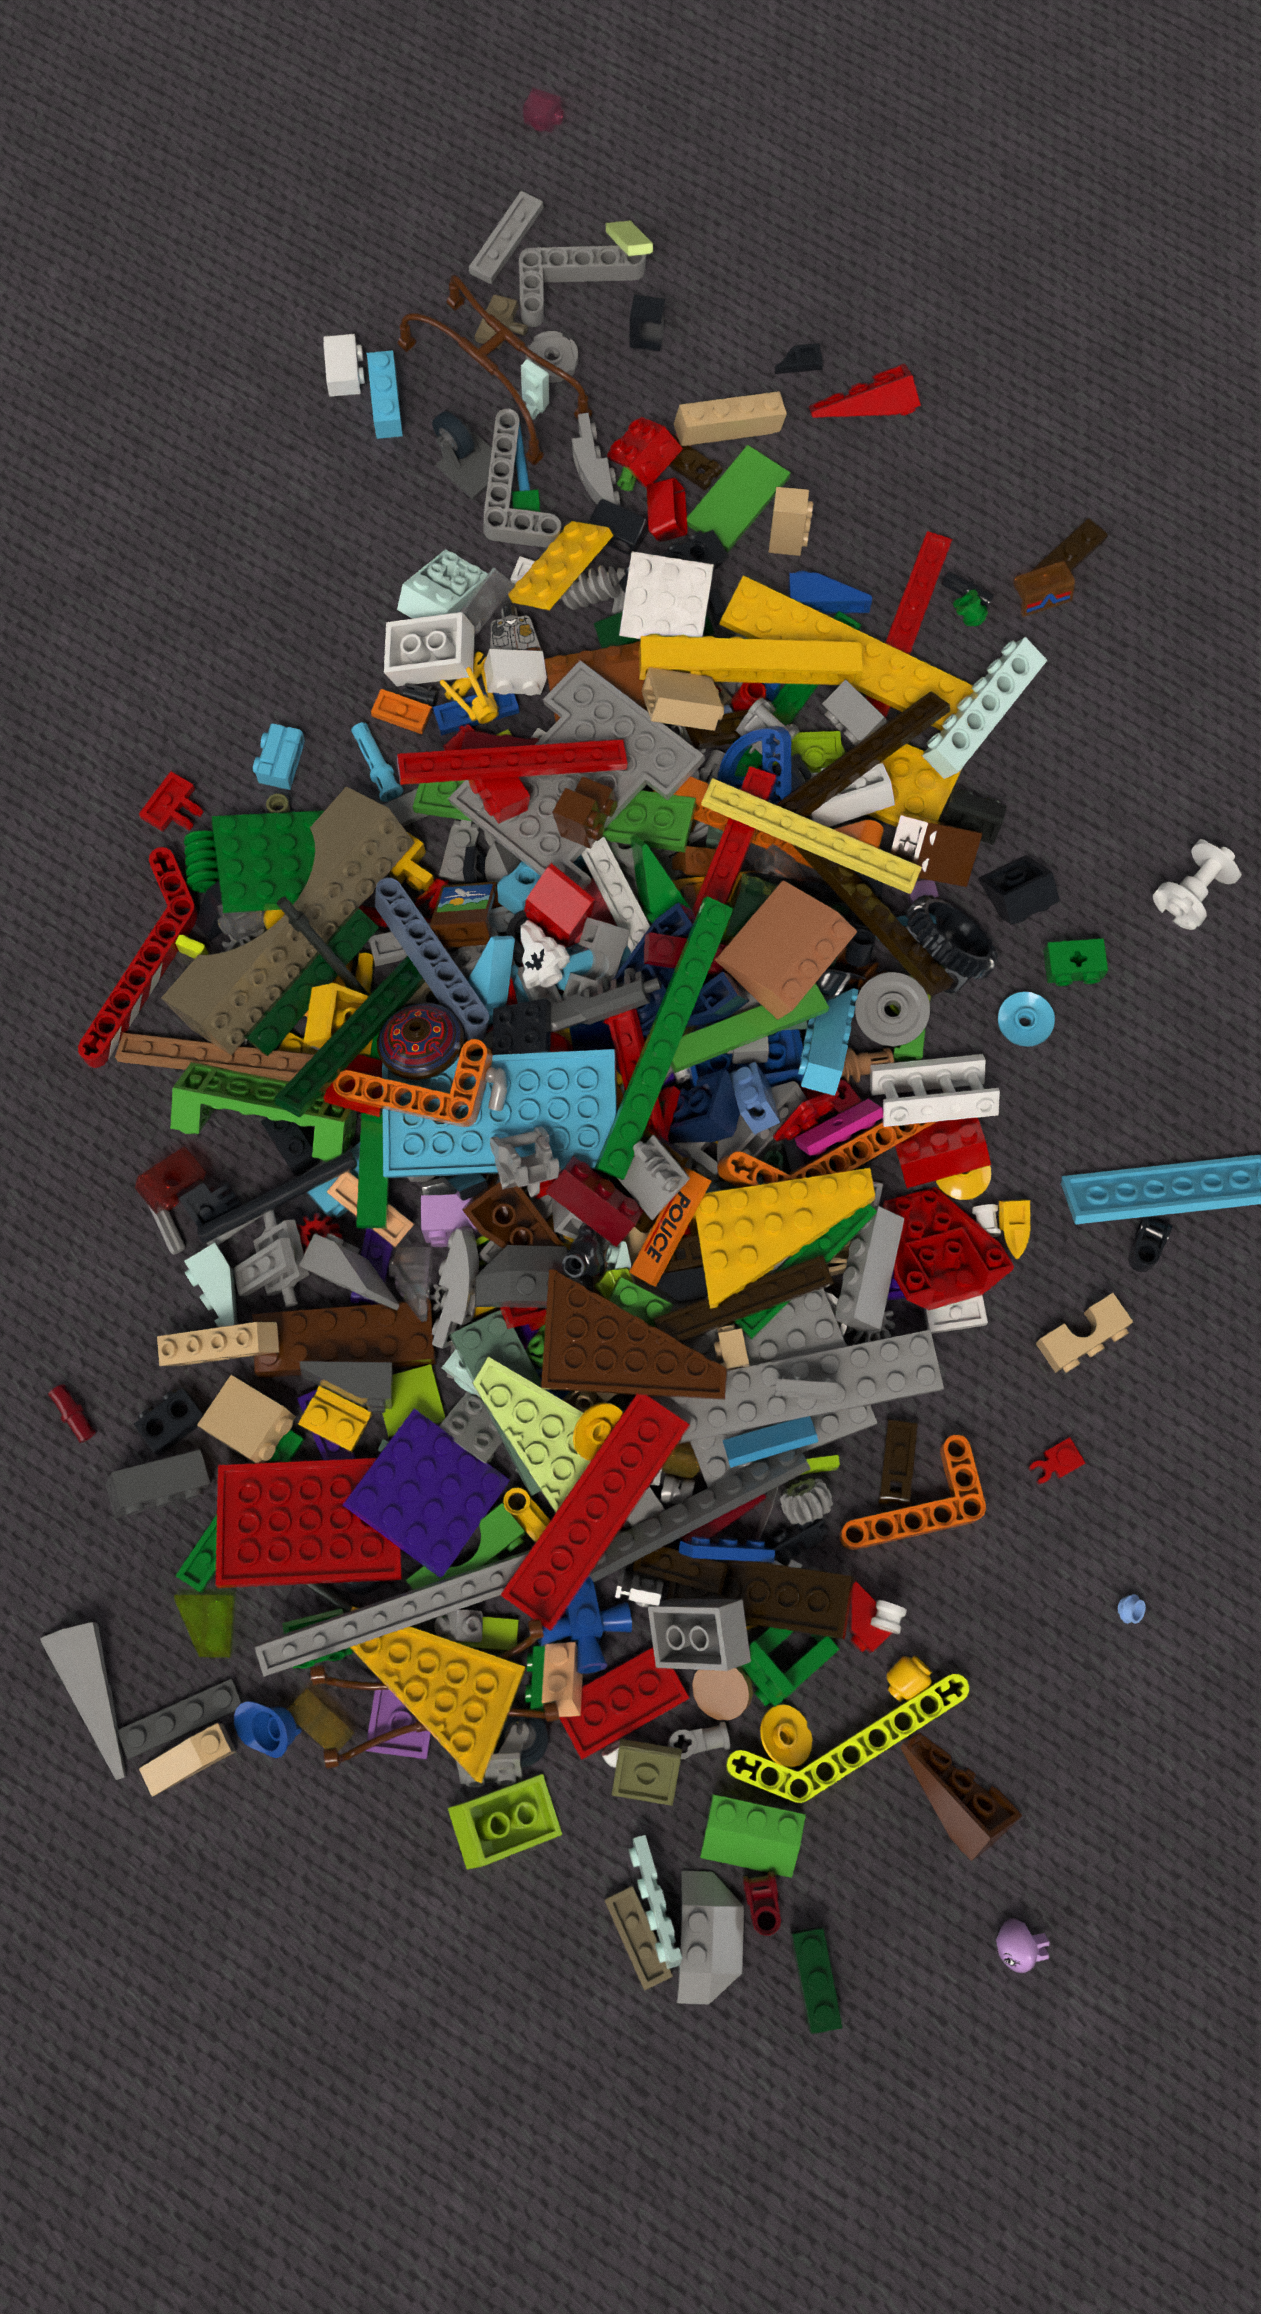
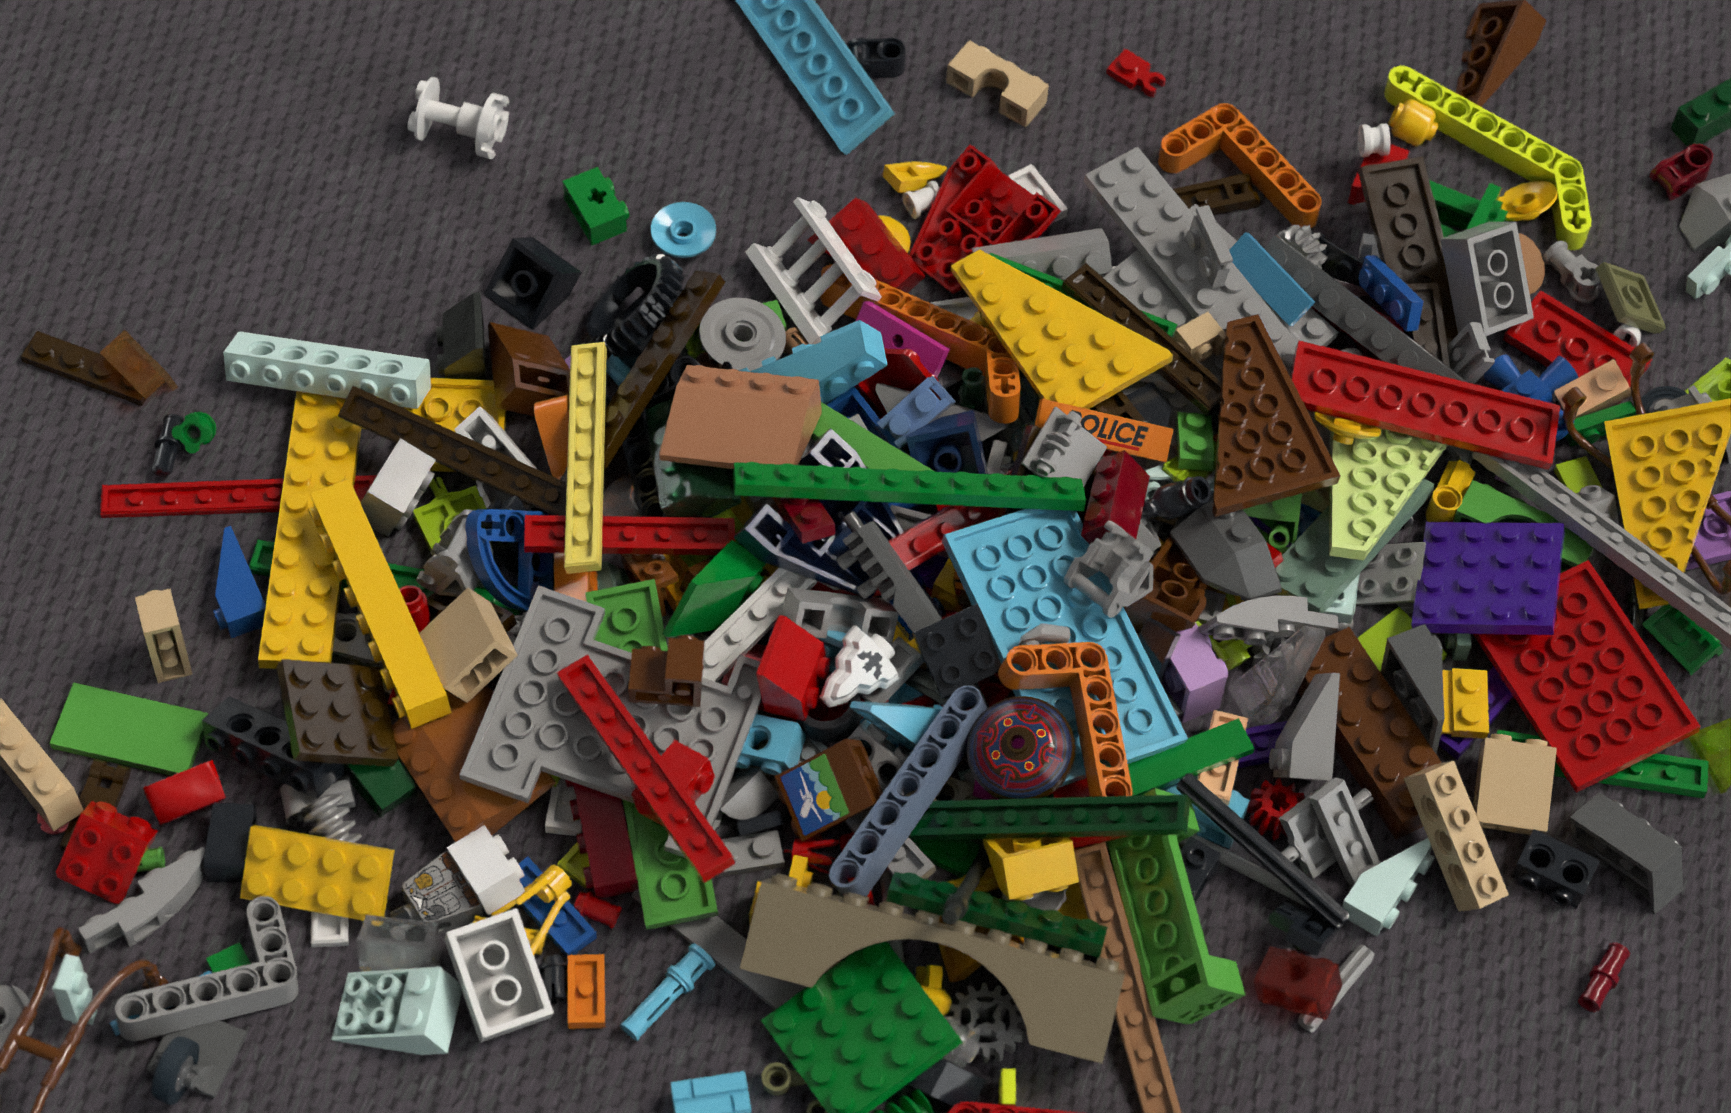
camera: 115 degrees left, 15 degrees down
(752, 1836) = (1625, 200): bright green slope -> none

